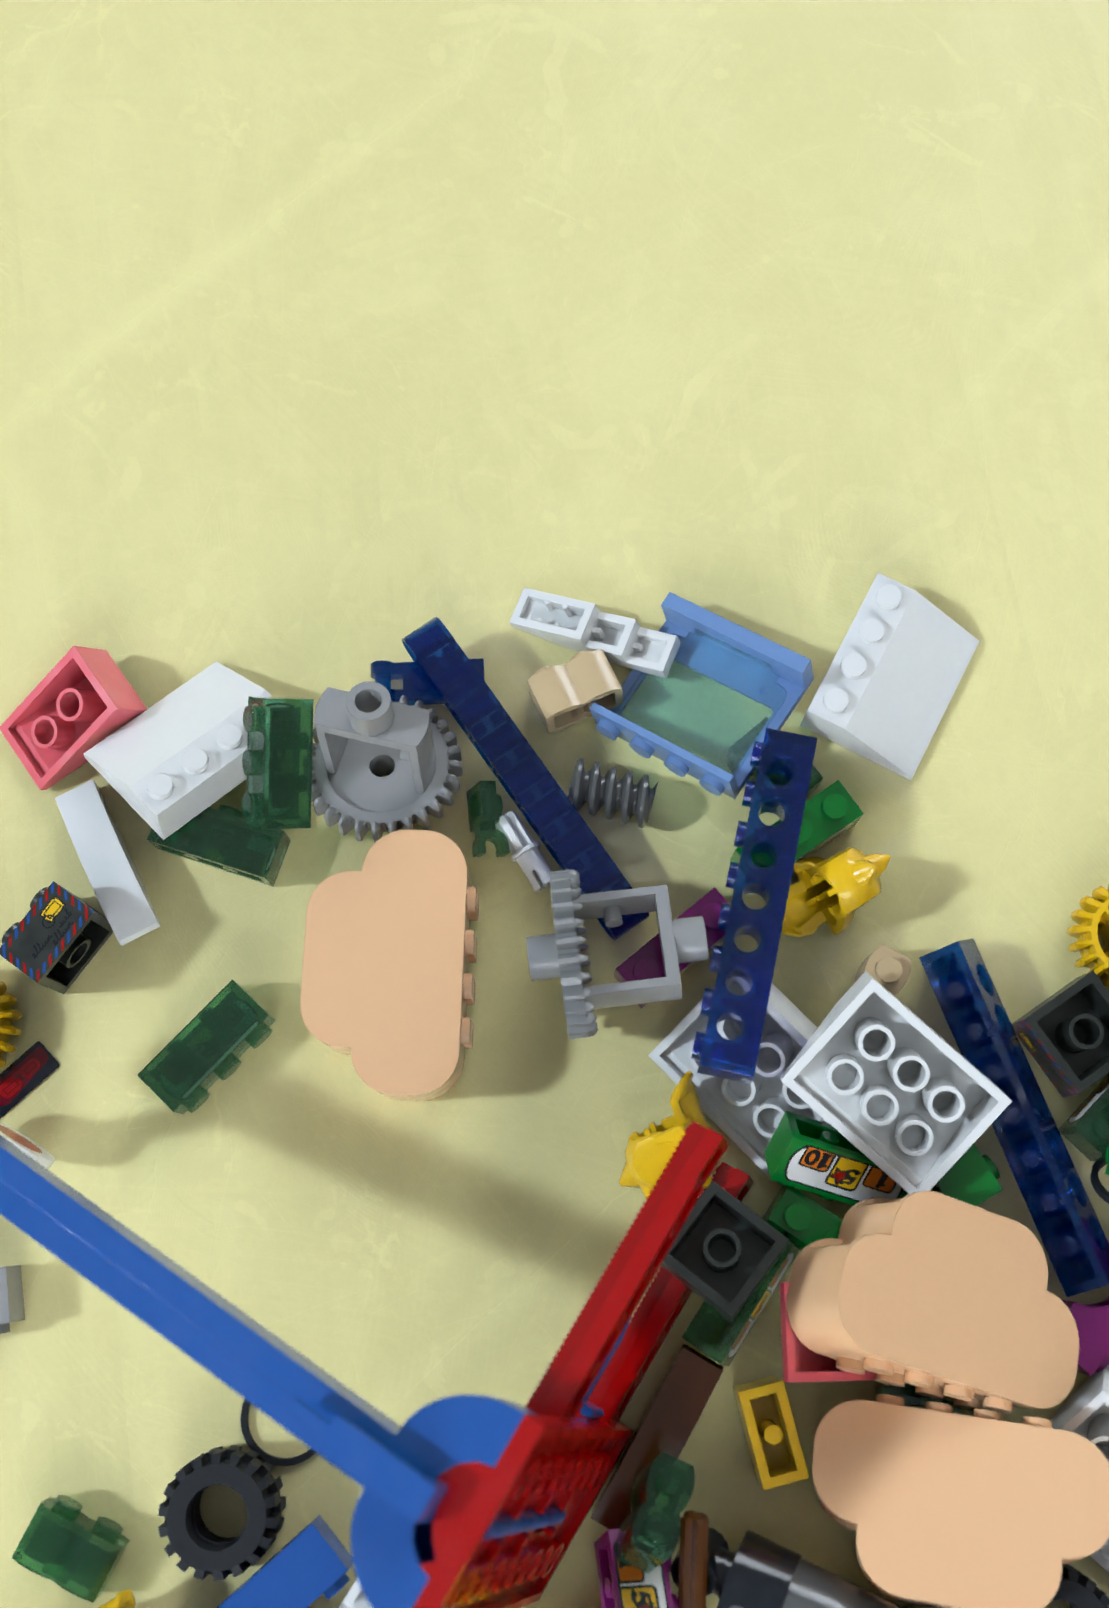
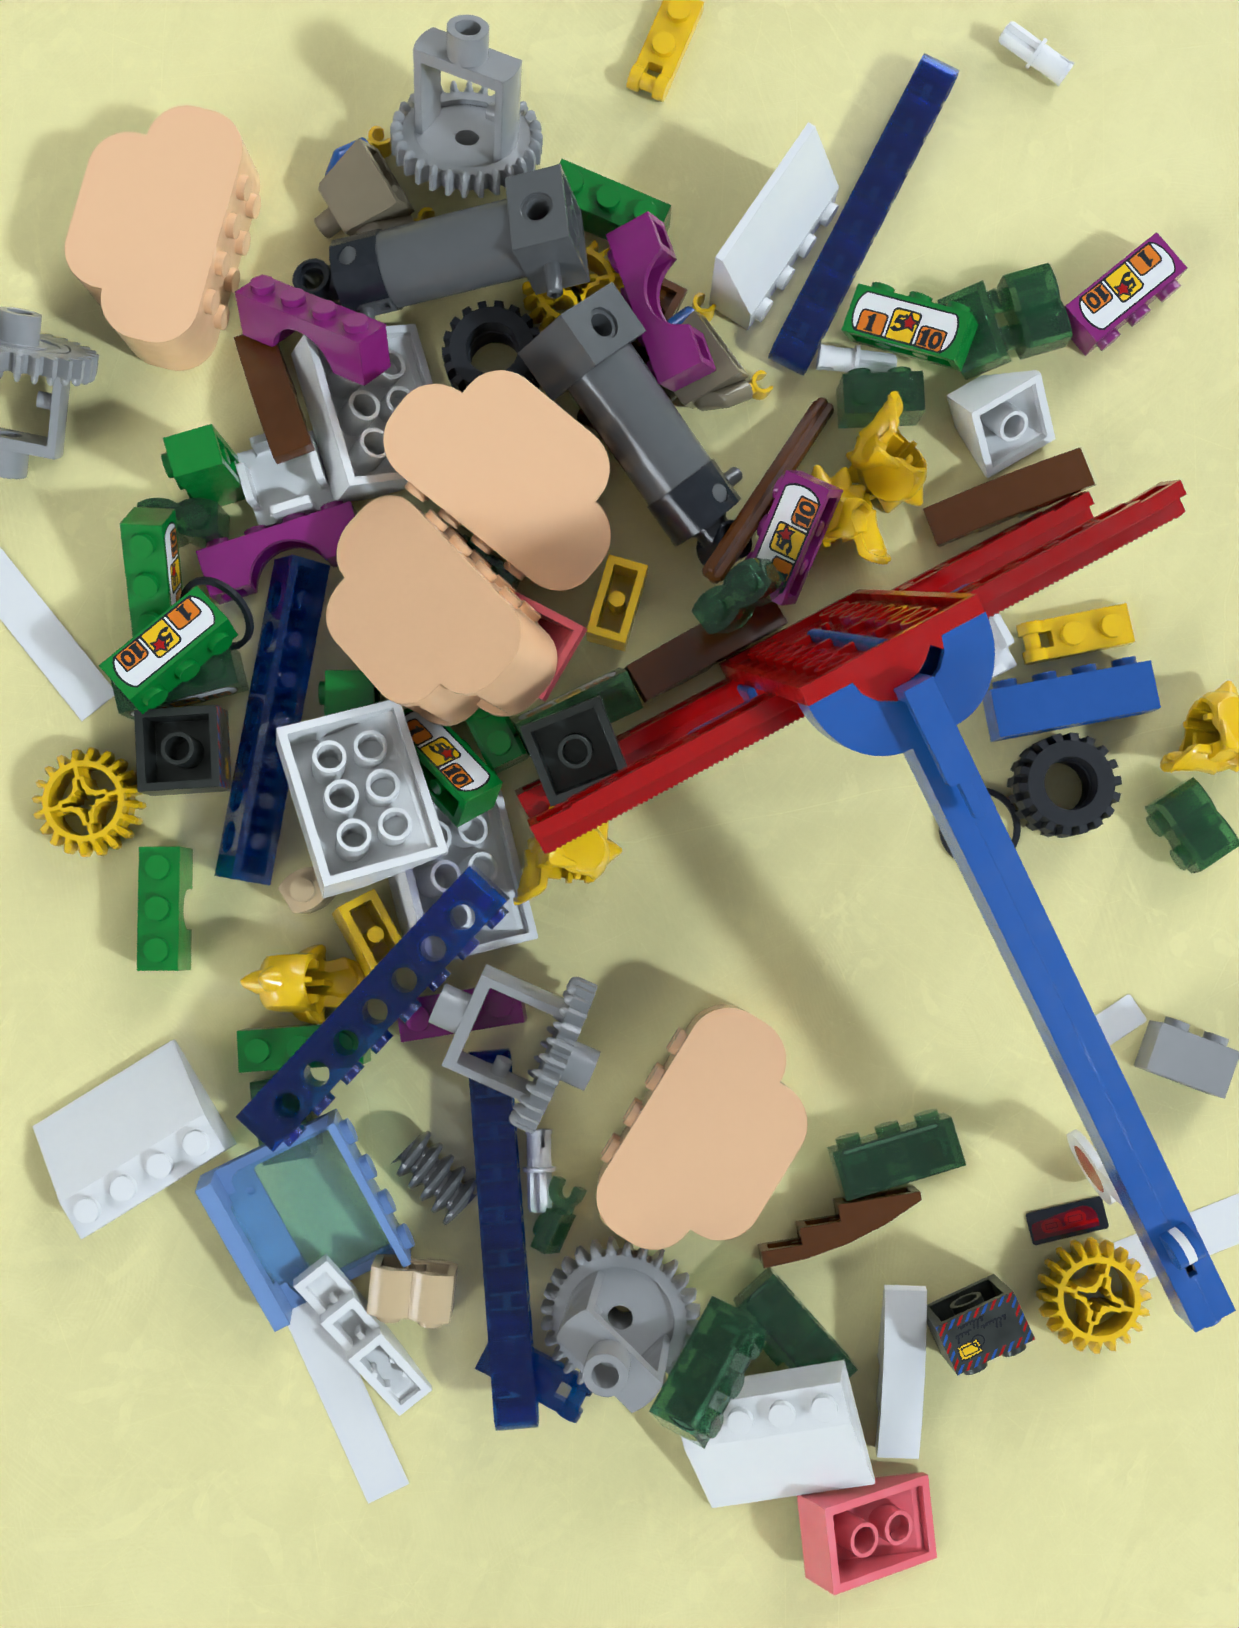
camera: 150 degrees left, 10 degrees up
(57, 1298) = (1120, 1019): none -> white sticker
(228, 949) = (849, 1223): none -> reddish brown slope
(571, 571) = (347, 1406): none -> white sticker
(807, 970) = (367, 929): none -> yellow brick
(1012, 902) = (161, 928): none -> green arch

